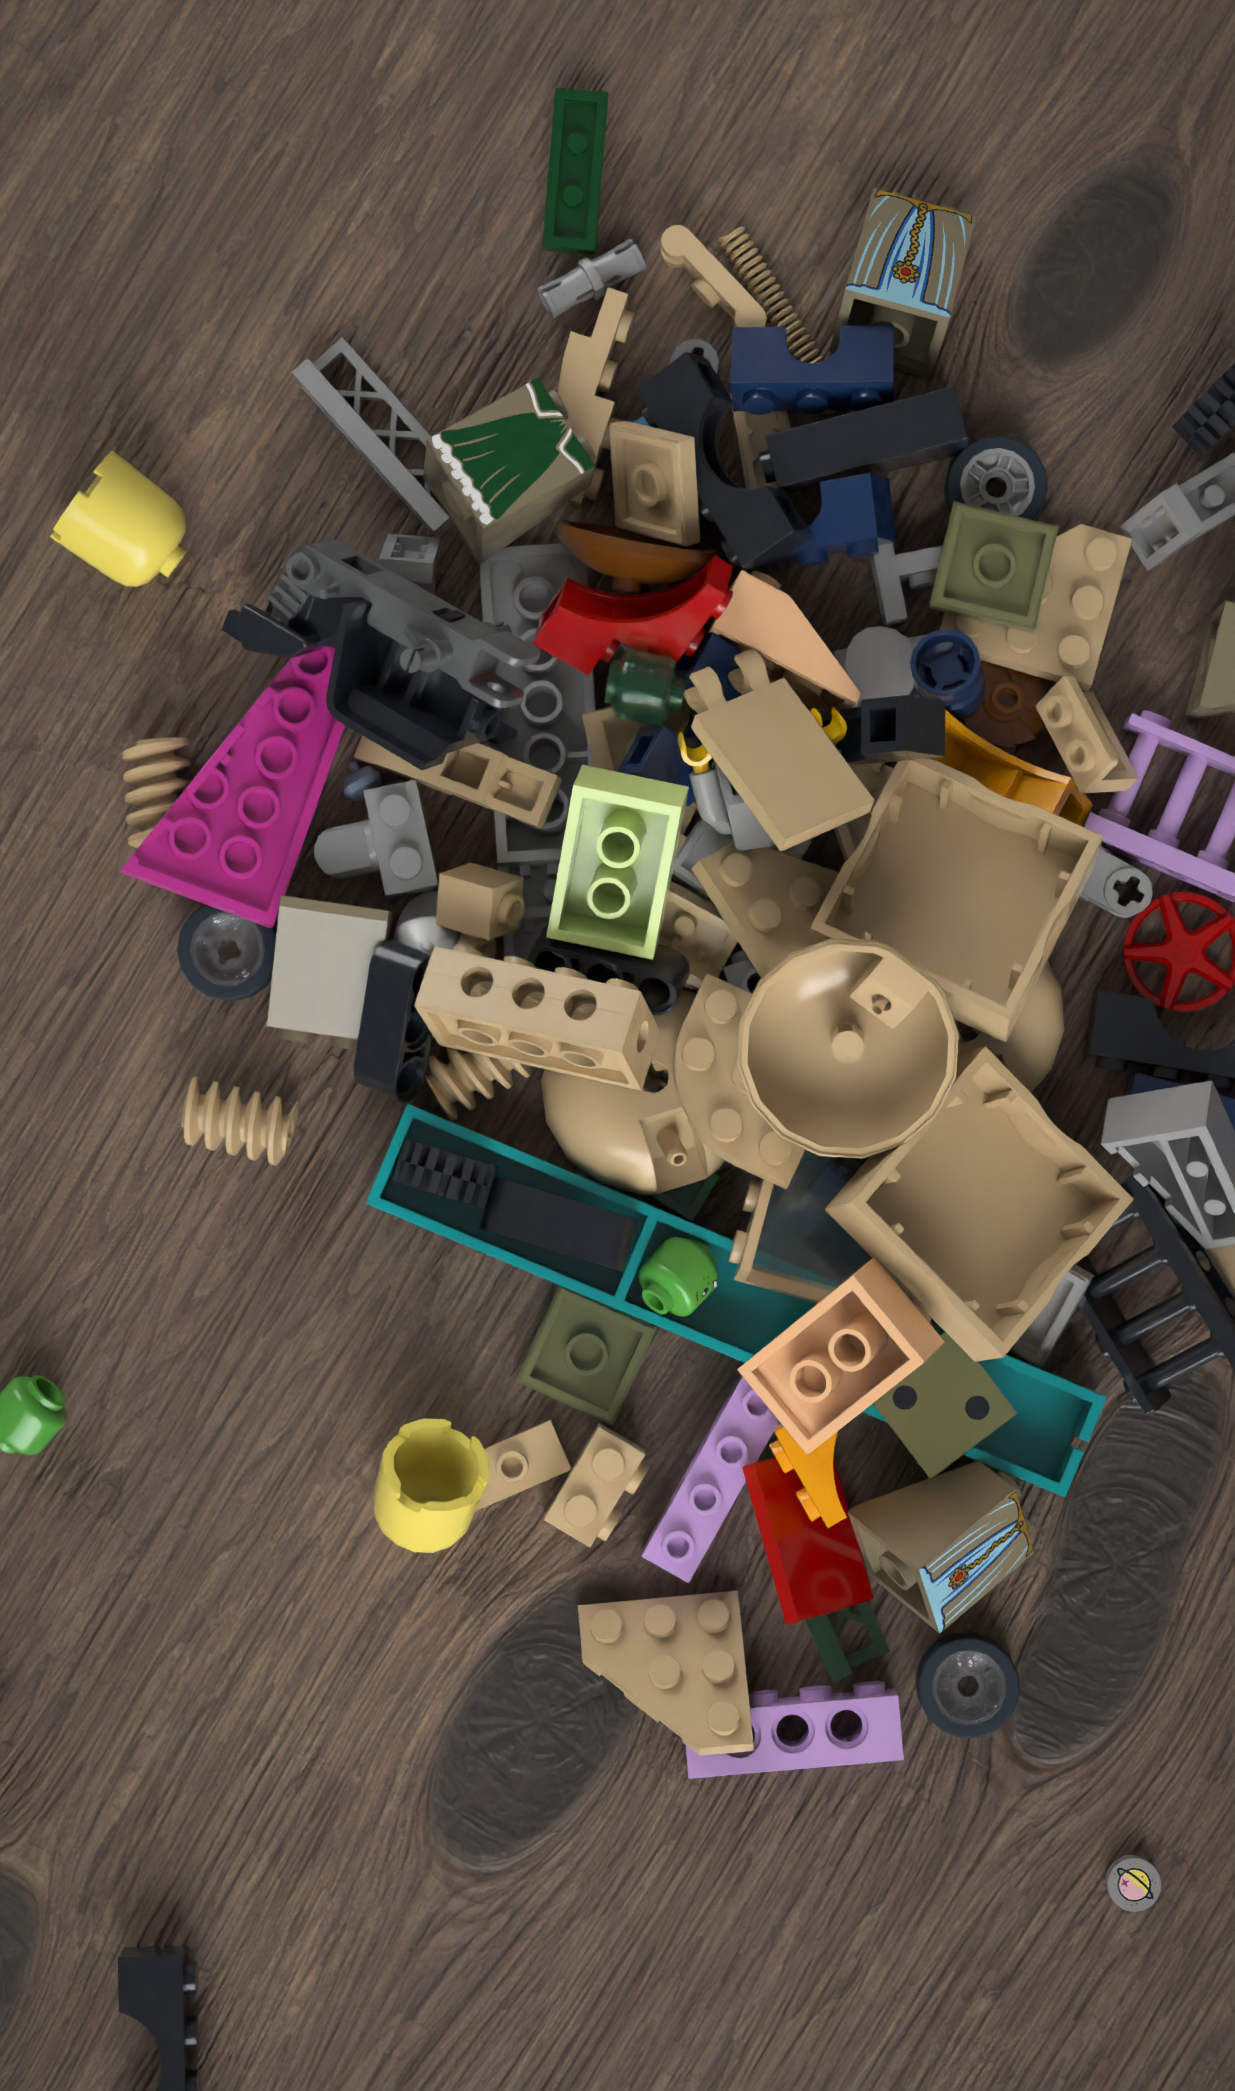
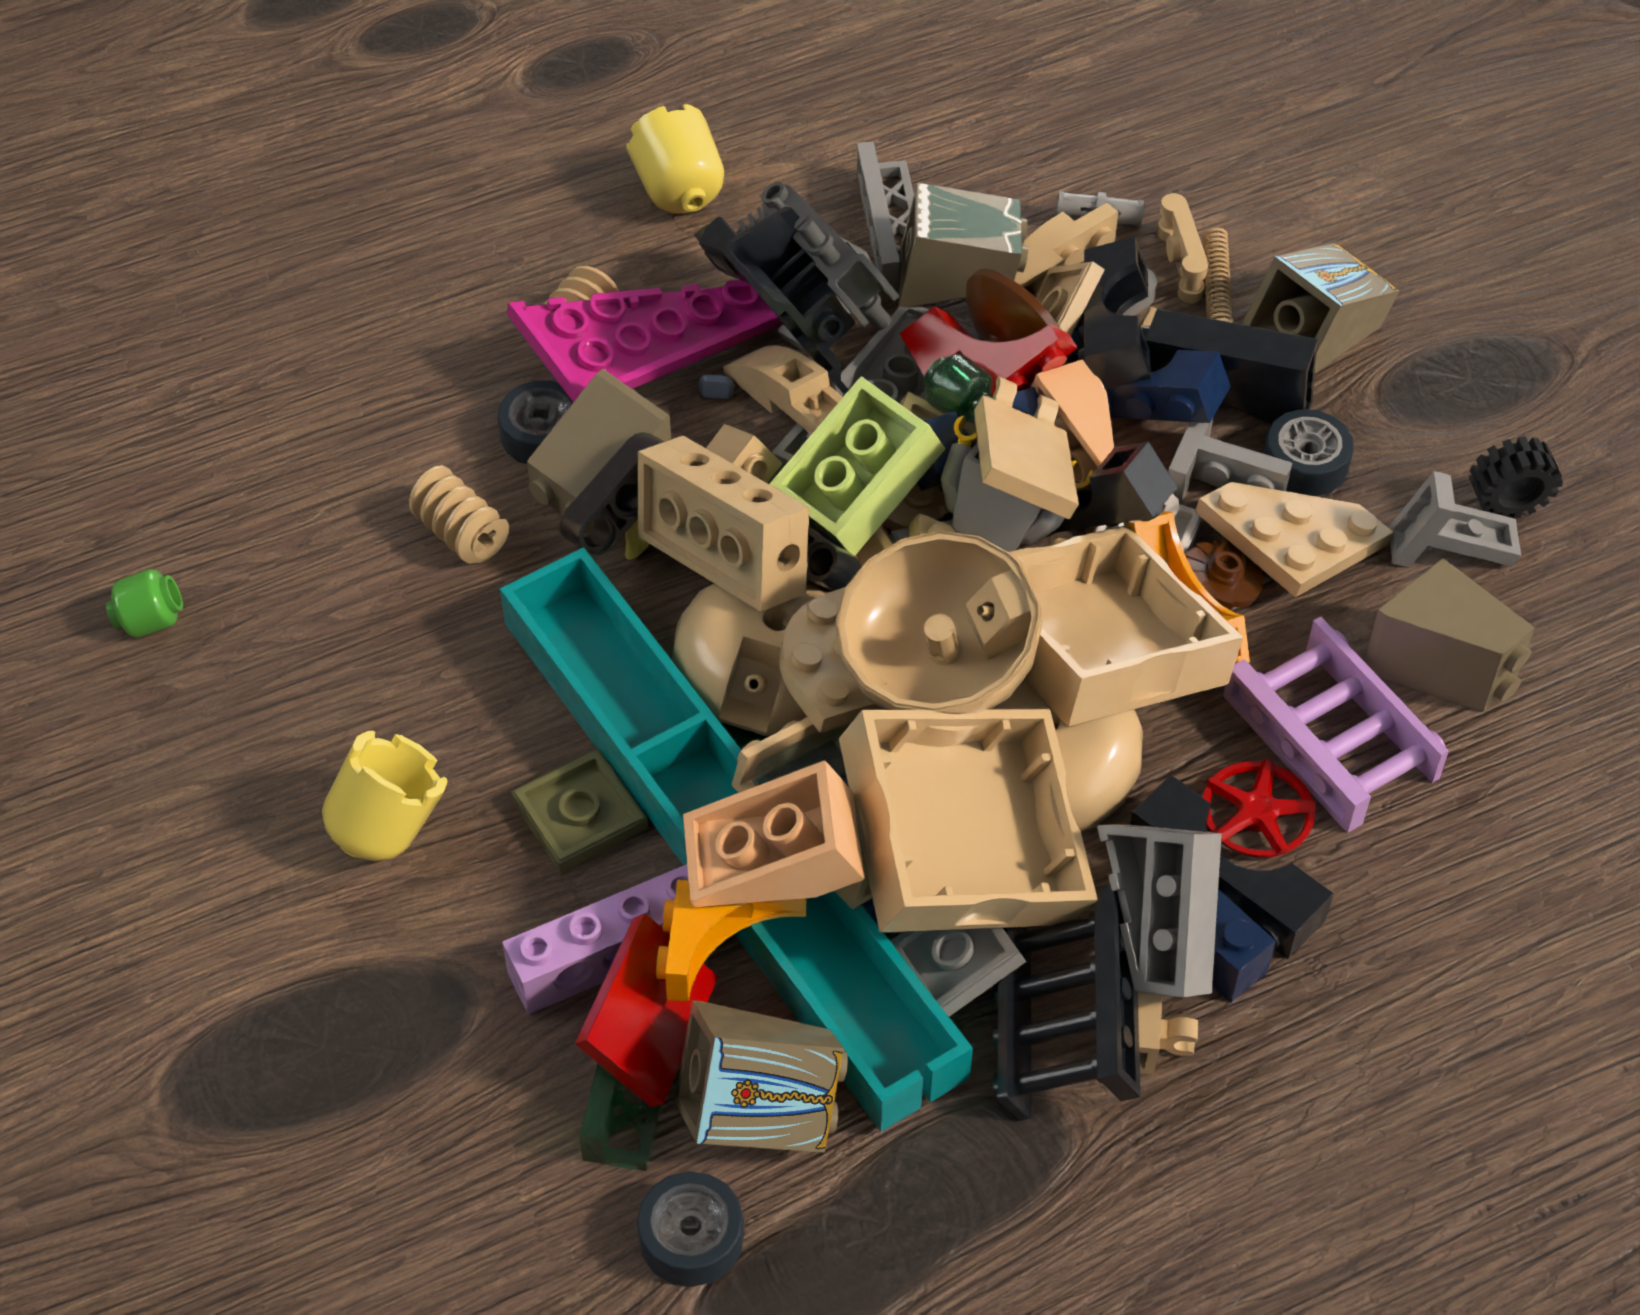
camera: 30 degrees right, 35 degrees down
(389, 842) = (701, 412): light grey brick -> none
(444, 1173) = (573, 605): black tyre -> none
(465, 1075) = (653, 577): tan piece -> none
(523, 1462) = (461, 850): tan plate -> none
(559, 1224) = (630, 679): black beam -> none
(575, 171) = (1131, 153): dark green plate -> none
(595, 1485) = (509, 888): tan brick -> none
(677, 1664) = (466, 1051): tan plate -> none
(678, 1276) = (691, 768): bright green head -> none
(772, 380) = (1189, 290): dark blue arch -> none
(874, 1740) = (576, 1219): lavender brick -> none
(944, 1407) = (829, 963): olive tile -> none
(950, 671) = (1198, 512): dark blue wheel -> none
(993, 567) = (1273, 473): olive tile -> none
(1085, 739) = (1271, 614): tan bracket -> none
(1101, 881) = (1224, 723): light grey piece -> none

